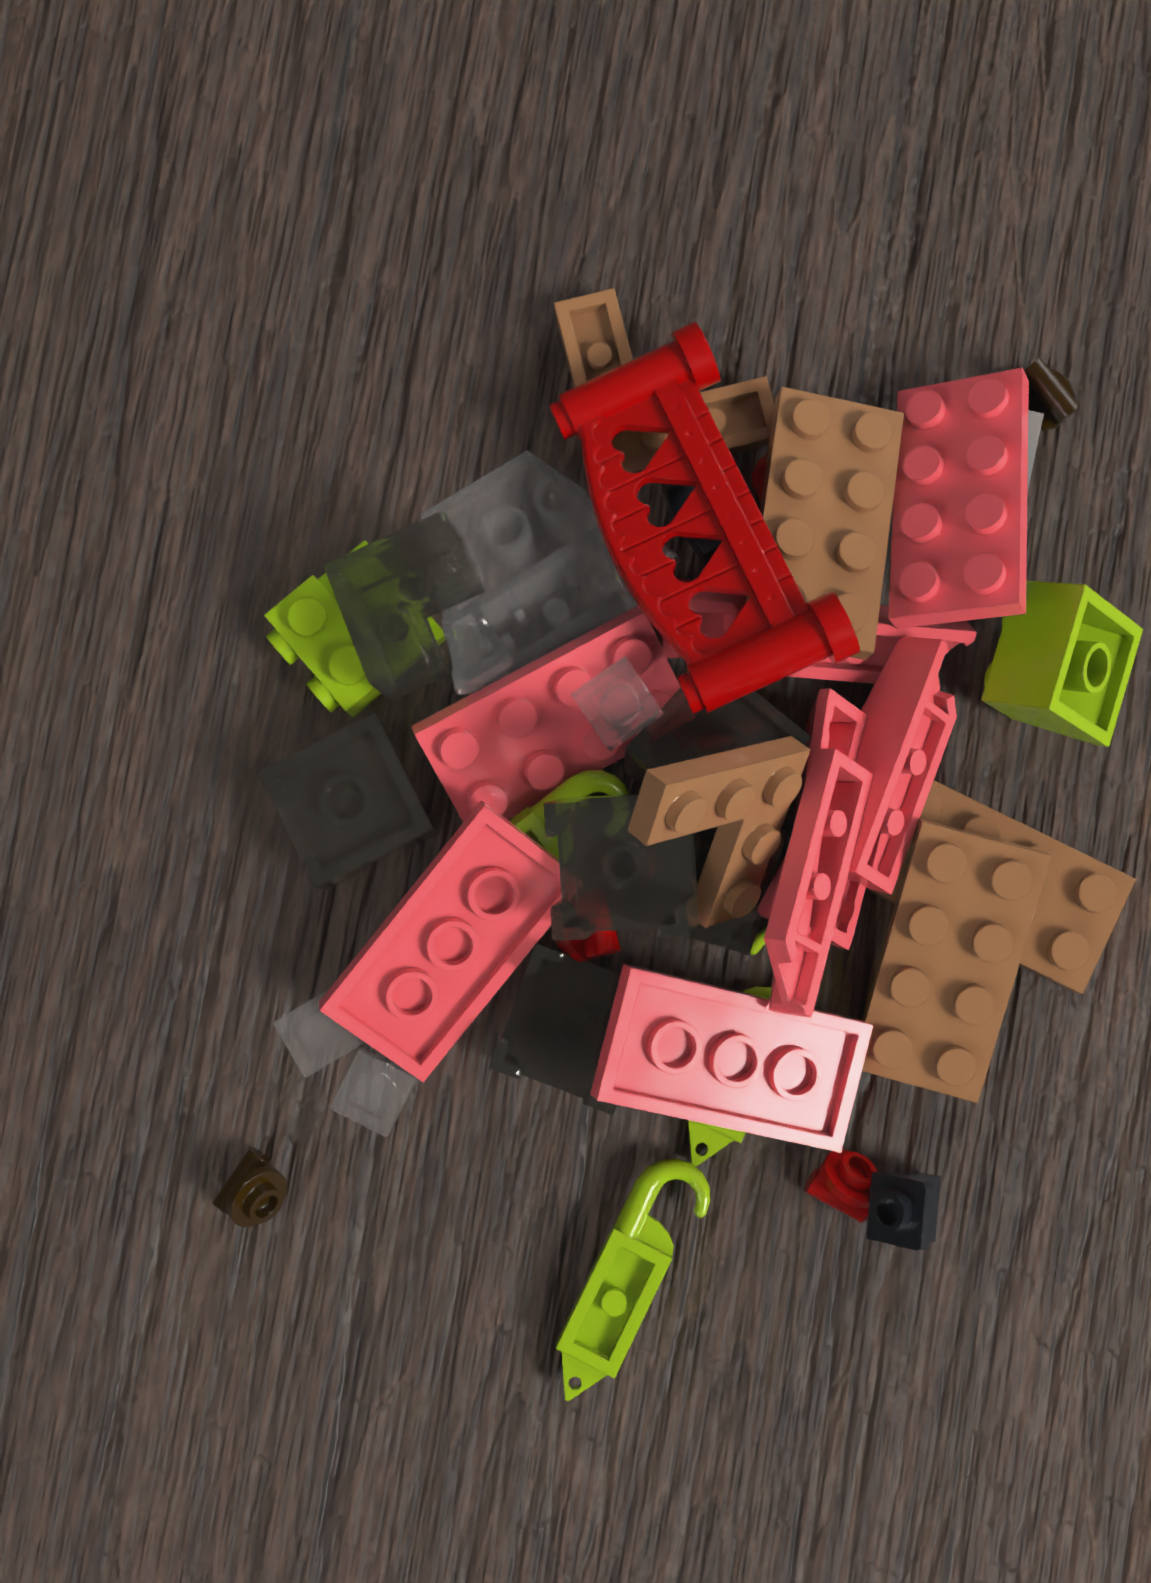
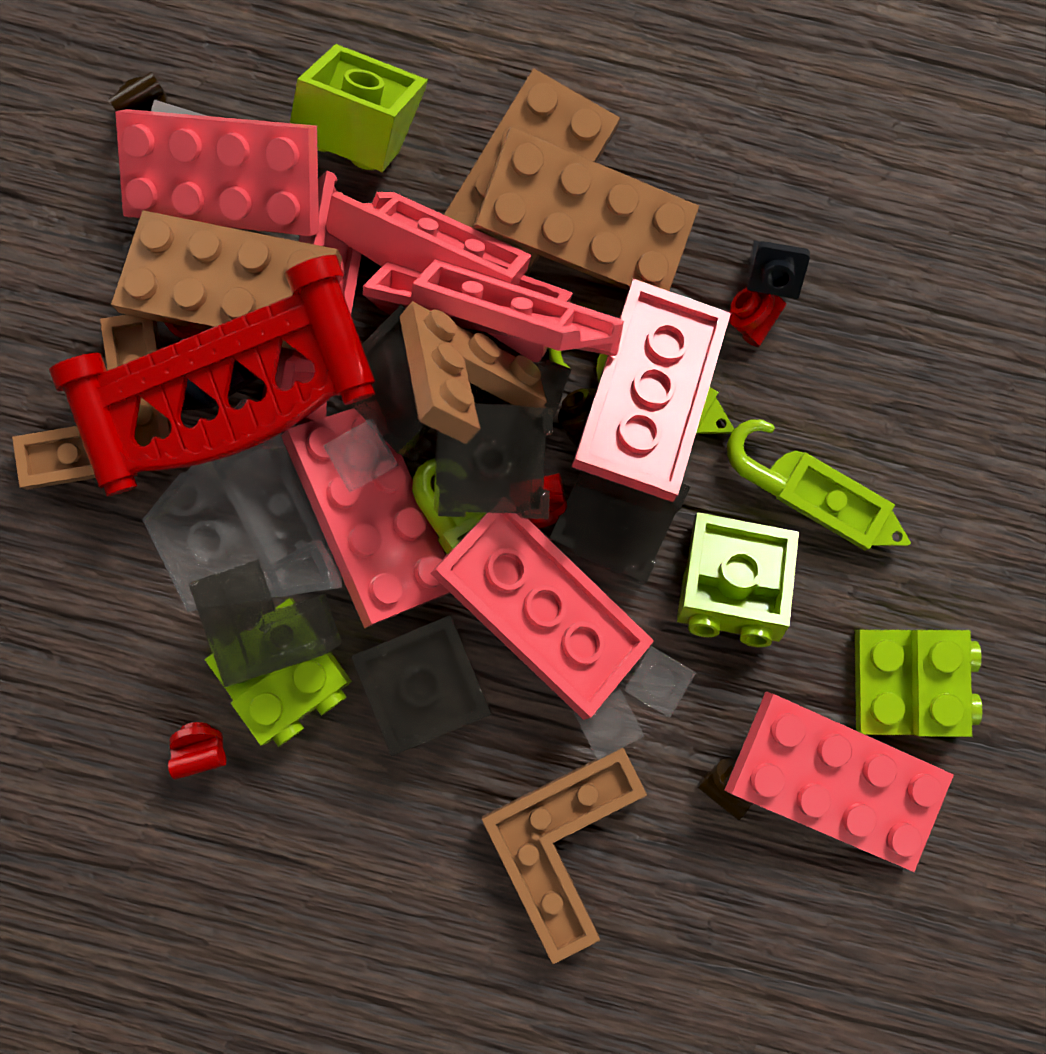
camera: 90 degrees left, 0 degrees up
(178, 943) = (526, 837): none -> medium nougat plate
(255, 539) = (195, 750): none -> red plate
(263, 1326) = (839, 781): none -> coral plate
(394, 1418) = (916, 682): none -> lime plate
(505, 1184) = (738, 580): none -> plate
(701, 965) = (575, 412): none -> dark brown plate

